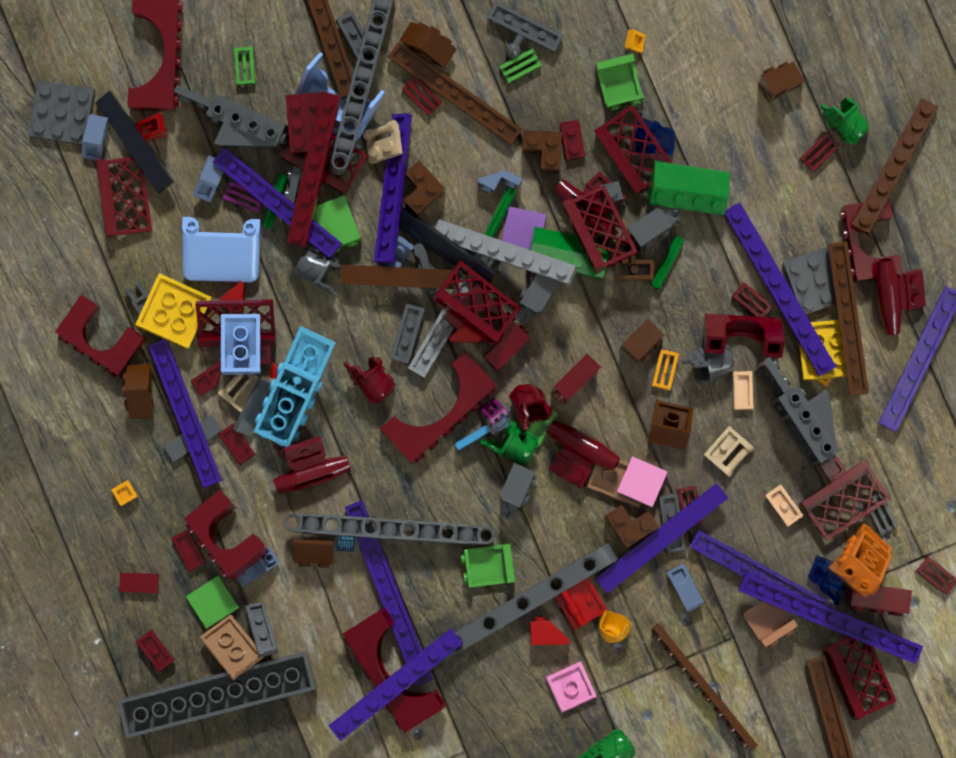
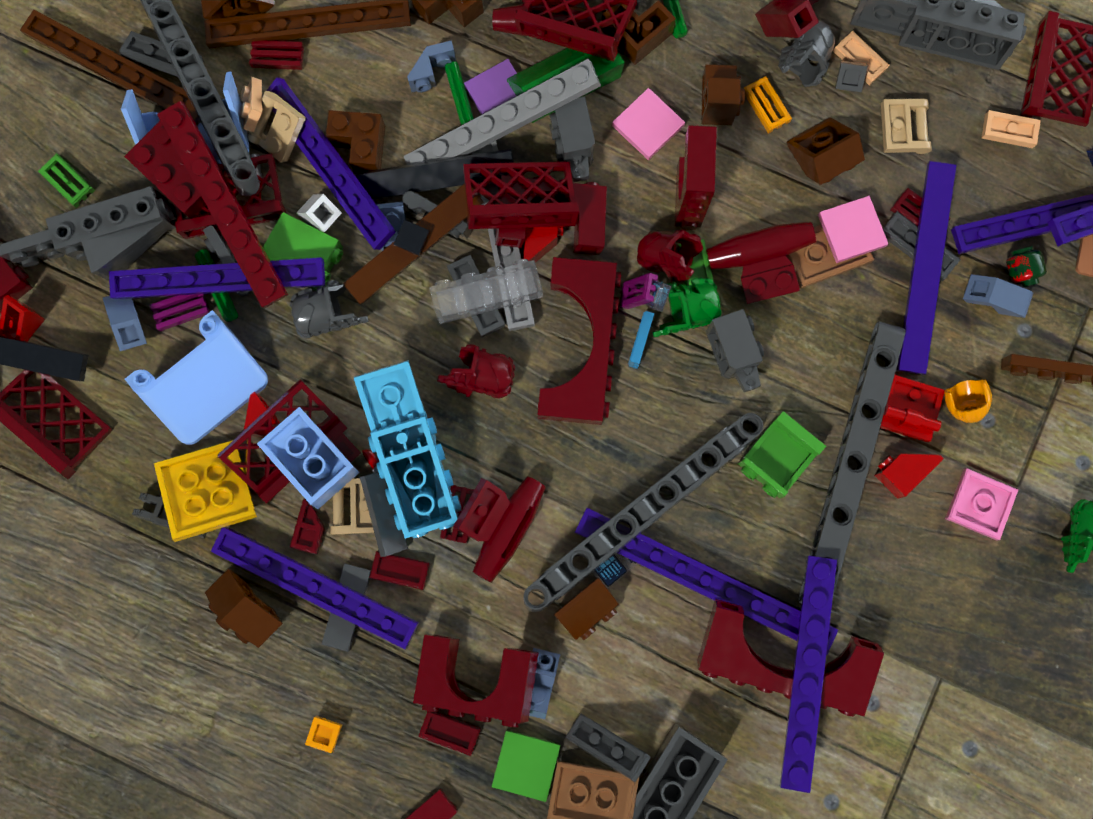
camera: 40 degrees left, 5 degrees down
(74, 331) = (112, 605): dark red arch -> none
(363, 212) = (319, 212): none -> white brick
(381, 118) = (252, 103): none -> light nougat plate
(398, 274) = (411, 237): none -> black tile
(412, 338) = (486, 291): none -> clear brick
(589, 321) = (648, 124): none -> bright pink tile
(630, 530) = (888, 287): reddish brown brick -> none
(715, 586) = (1026, 266): none -> dark green head
(724, 396) = (851, 76): none -> dark grey plate
(833, 469) = (1024, 54): plate -> none

